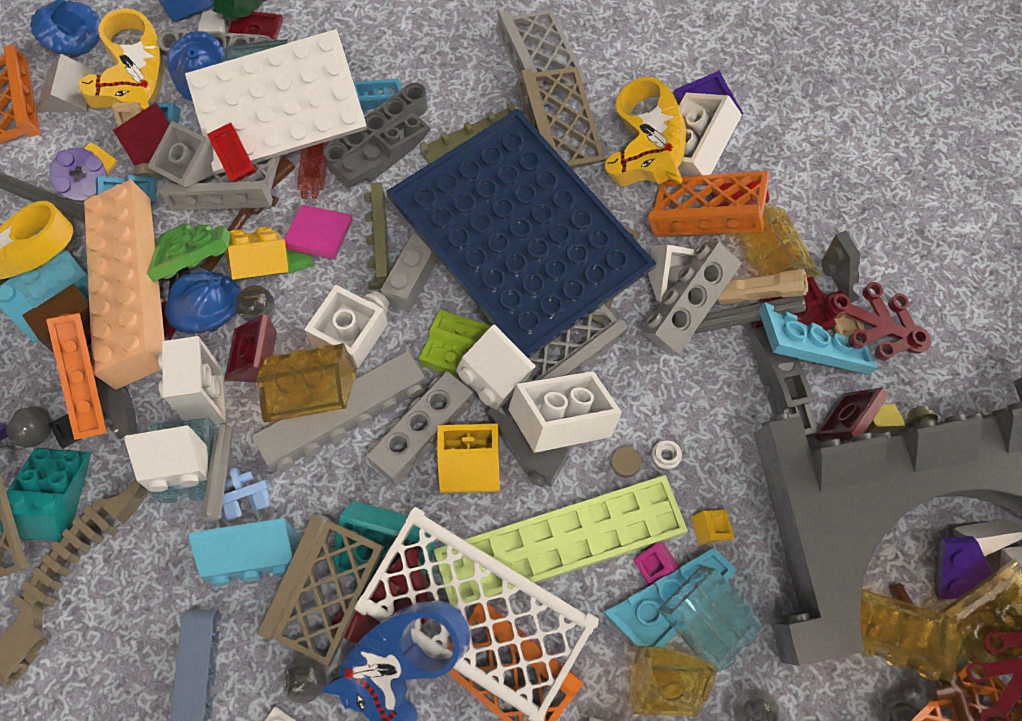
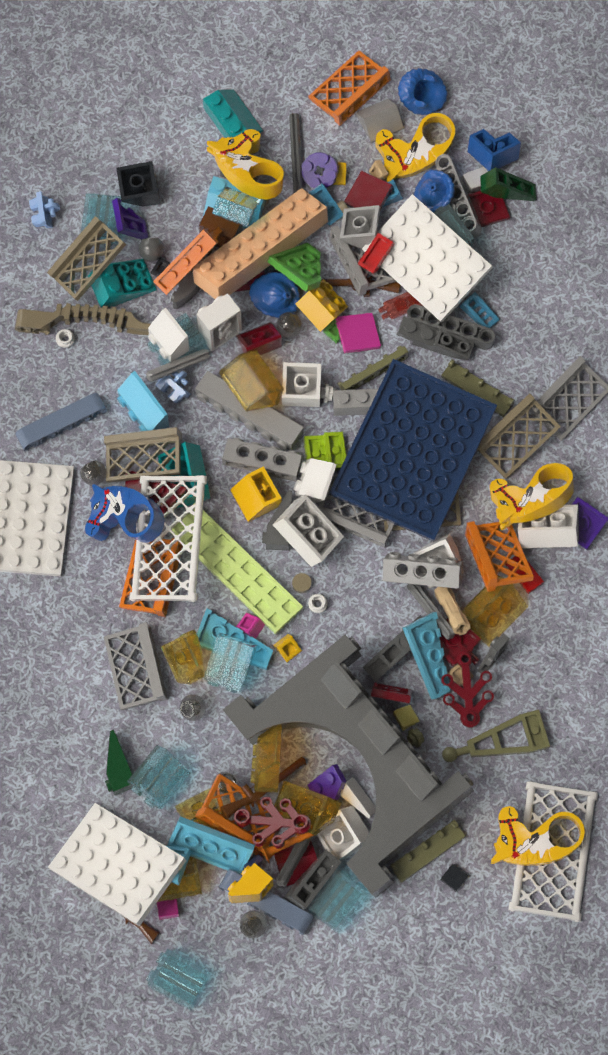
camera: 60 degrees right, 5 degrees up
(63, 615) = (63, 333): none -> white plate
(971, 275) = (533, 729): none -> olive plate

